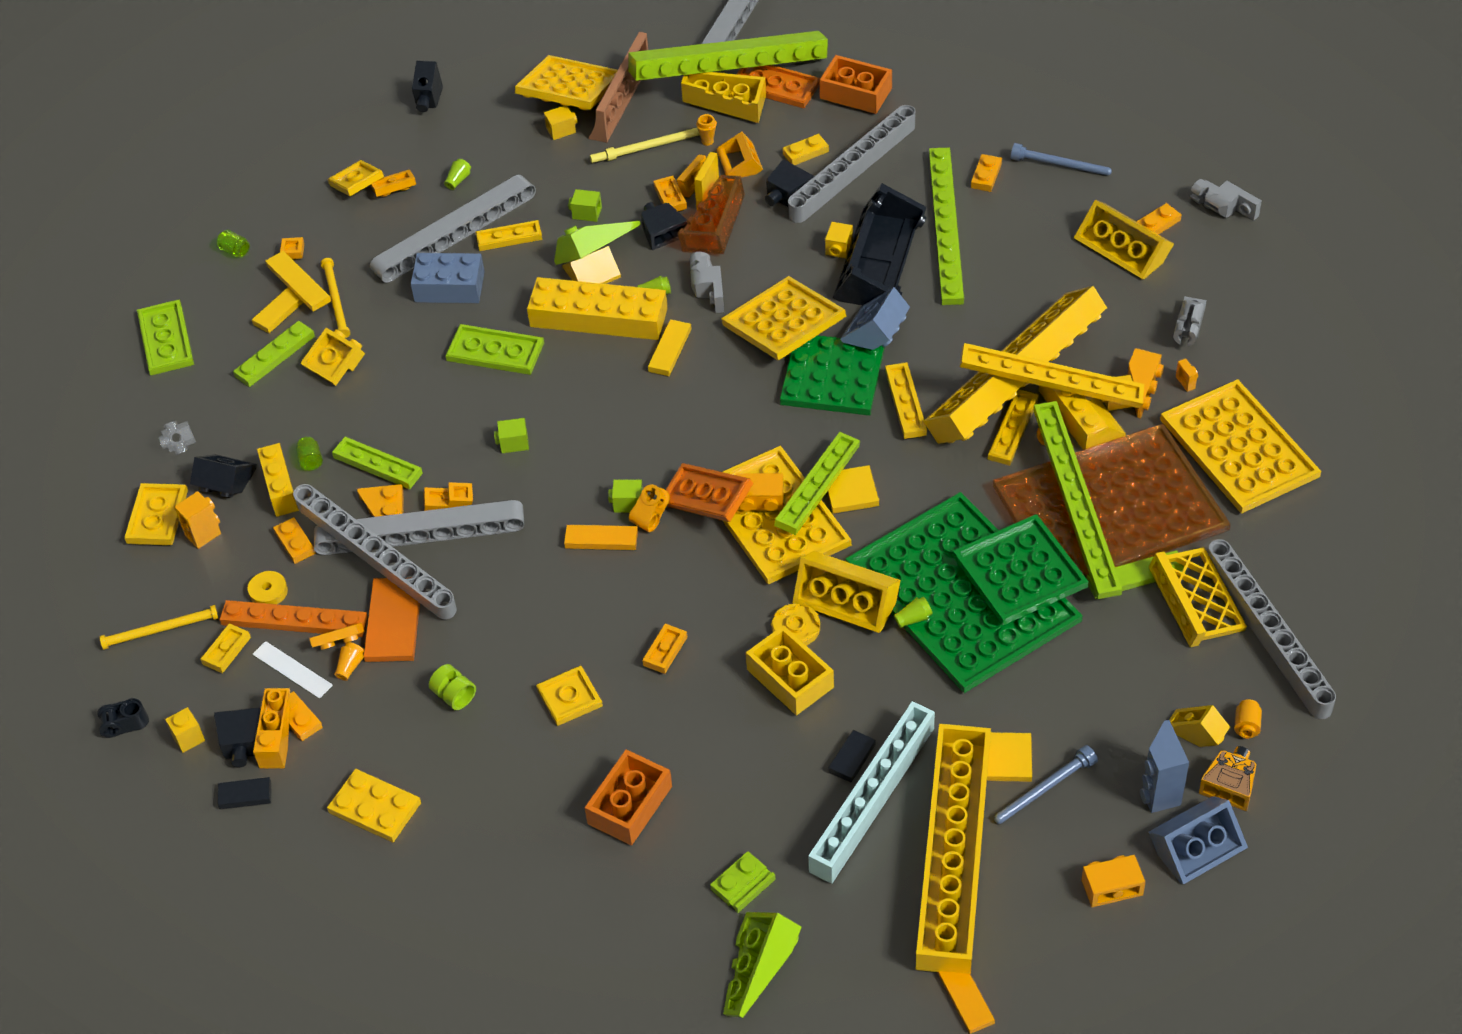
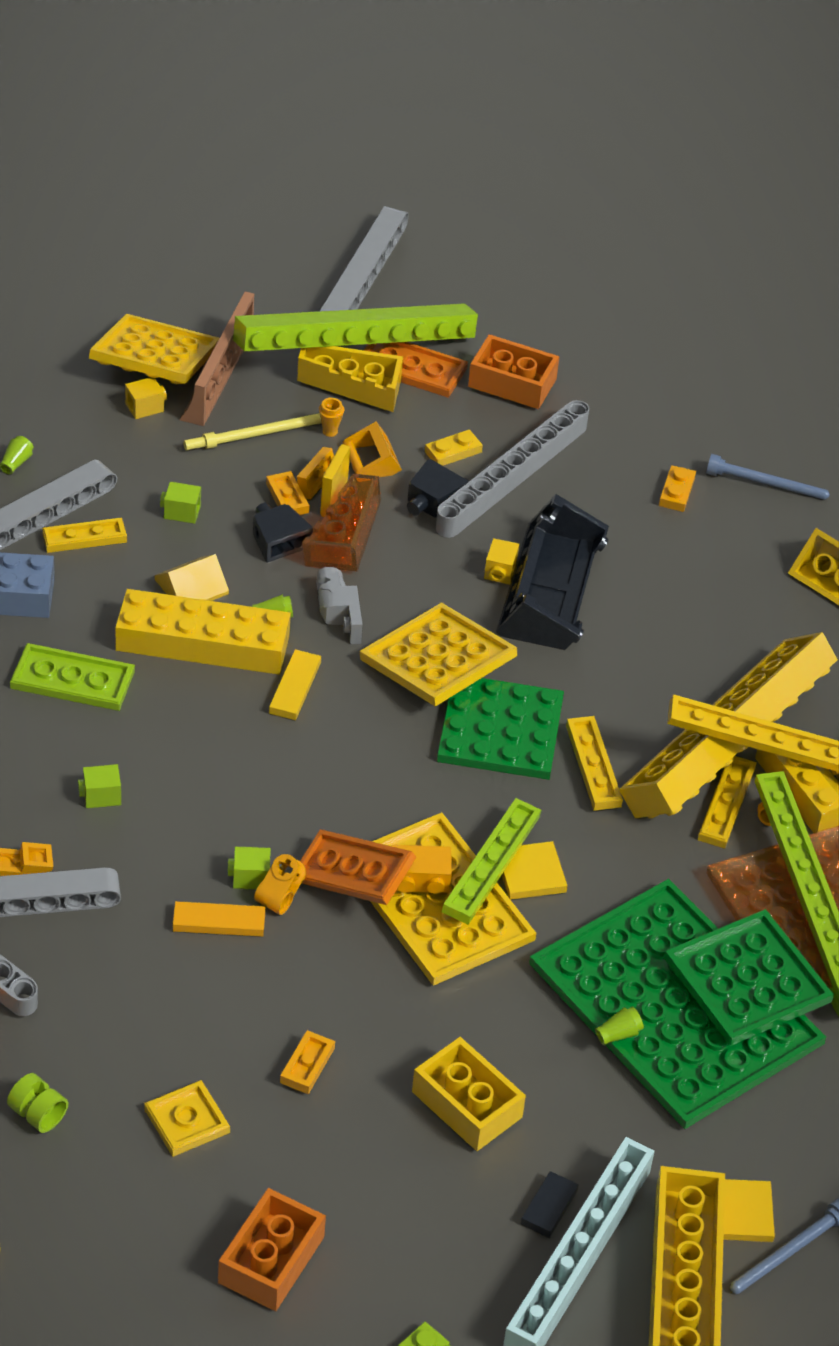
camera: 10 degrees left, 5 degrees down
(582, 241) = (182, 547): wedge -> none
(799, 620) = (477, 1030): yellow tile -> none
(845, 591) = (533, 997): yellow slope -> none
(877, 321) = (555, 663): sand blue slope -> none
(946, 227) = (632, 552): lime plate -> none

